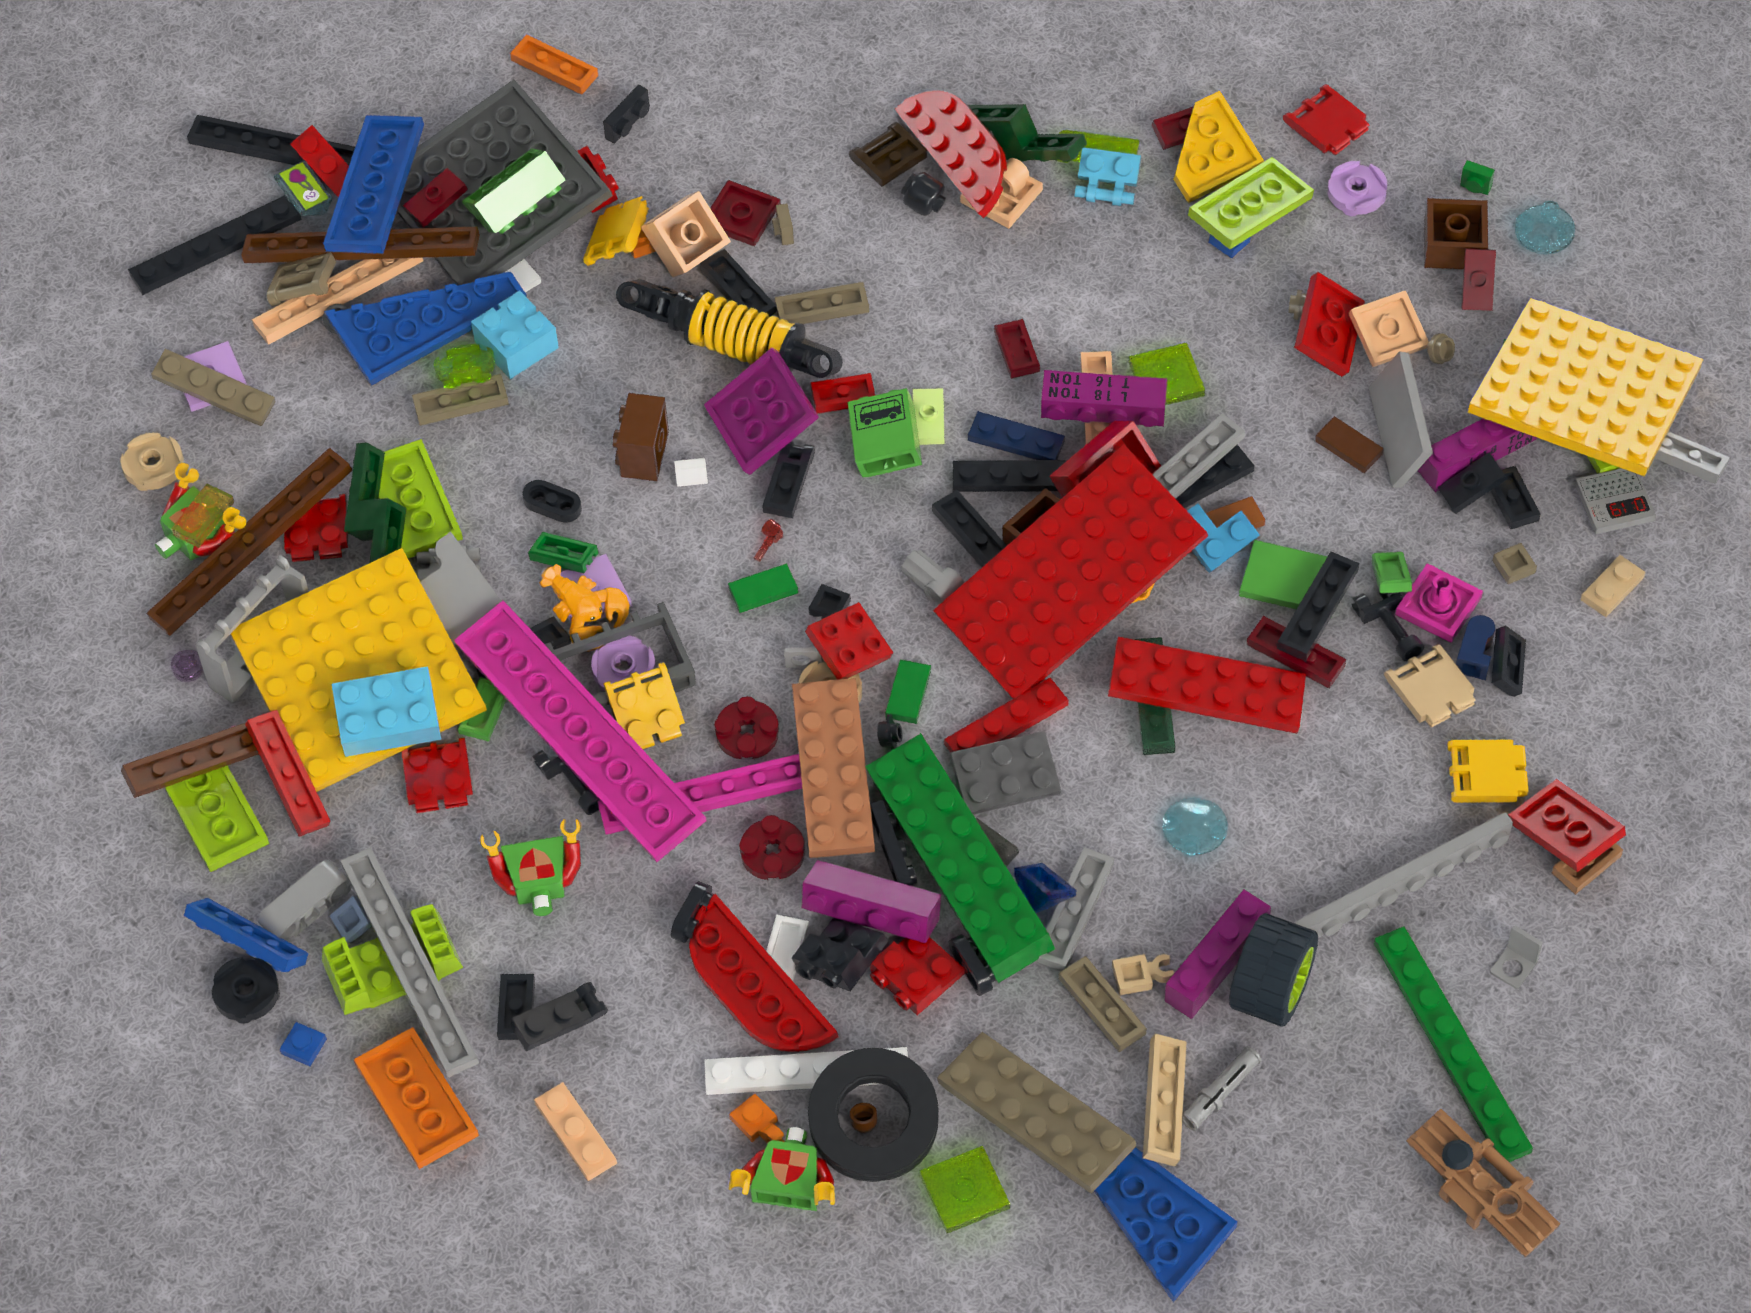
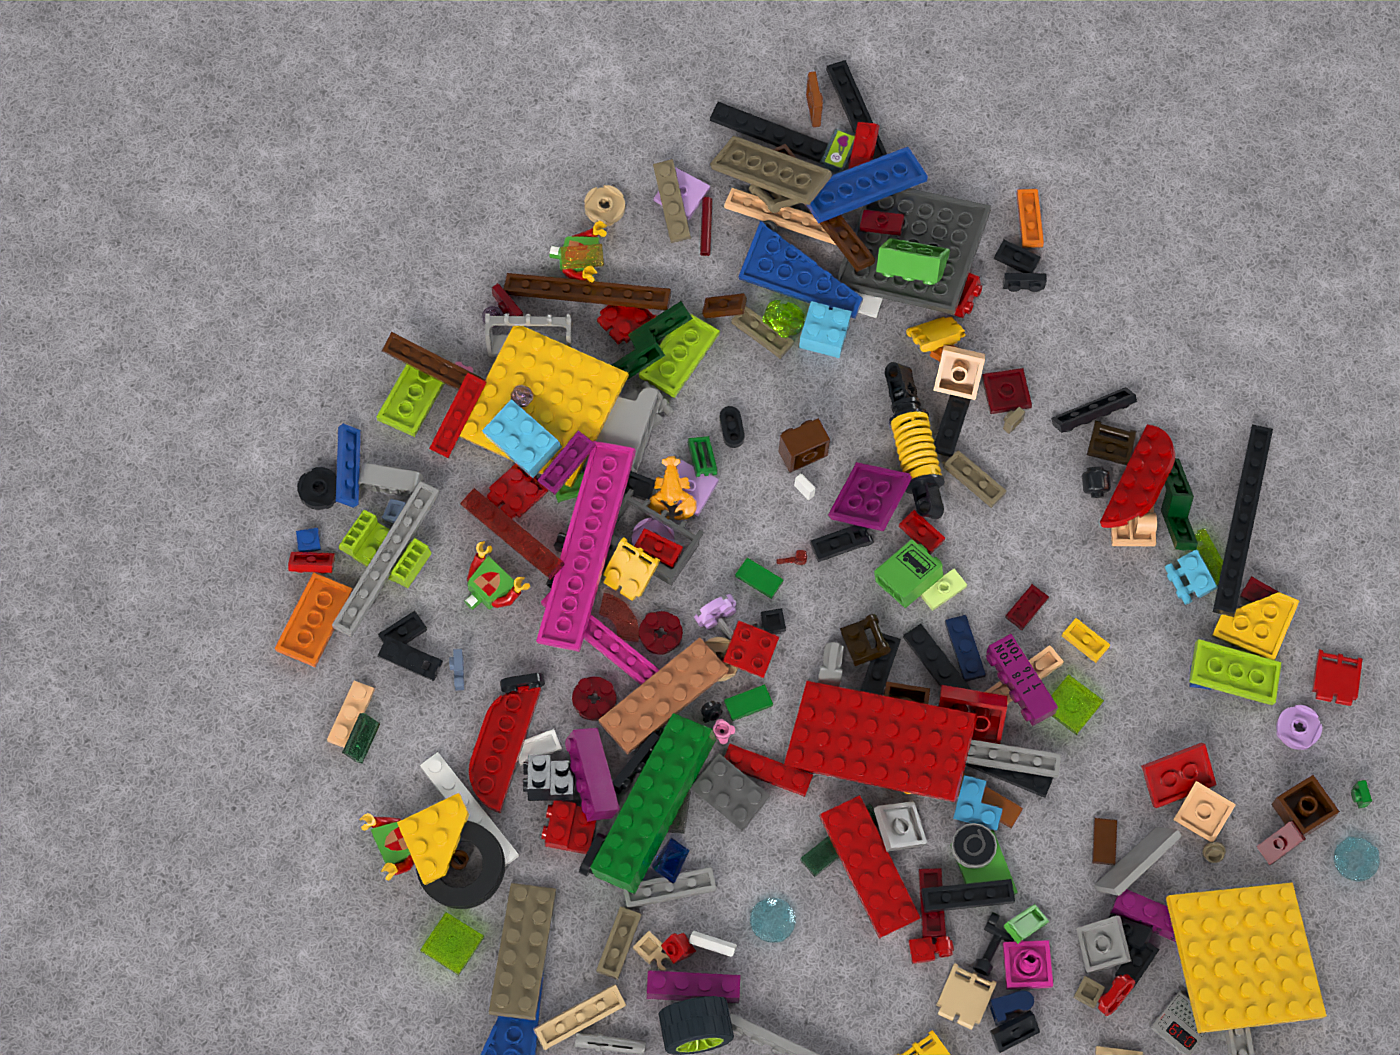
camera: 50 degrees right, 10 degrees up
(181, 636) = (505, 302): none -> dark red plate
(221, 169) = (814, 99): none -> dark orange plate
(272, 260) = (771, 170): none -> dark tan plate
(274, 377) = (706, 222): none -> dark red piece
(330, 674) = (522, 395): none -> tile
(337, 1055) = (311, 562): none -> red plate
(395, 414) = (724, 305): none -> reddish brown plate
(458, 684) = (566, 462): none -> magenta plate
(493, 804) = (512, 534): none -> clear red plate
(590, 104) = (1017, 257): none -> black plate
(611, 968) = (456, 663): none -> sand blue plate
(618, 1134) = (361, 738): none -> clear green plate
(644, 657) = (659, 547): none -> red plate
(693, 759) = (621, 616): none -> clear red tile
(756, 1120) = (420, 800): orange plate -> none
(774, 639) = (714, 610): none -> lavender plate
(819, 1115) = (434, 836): none -> yellow plate
(836, 145) = (1095, 409): none -> black plate
(928, 733) = (728, 730): none -> bright pink plate
(930, 534) = (858, 643): none -> dark brown plate
(1084, 88) = (1242, 521): none -> black plate
(1101, 317) = (1086, 640): none -> yellow plate
(1157, 940) = (678, 947): none -> red bracket
(1179, 902) = (712, 943): none -> white tile
(1182, 624) = (900, 826): none -> light grey plate
(1261, 567) = (974, 846): none -> black tile
(1296, 304) = (1180, 745): dark tan plate -> none
(1346, 694) = (923, 949): none -> red plate
(1471, 512) = (1103, 944): none -> light grey plate
(1533, 523) = (1121, 988): none -> red plate

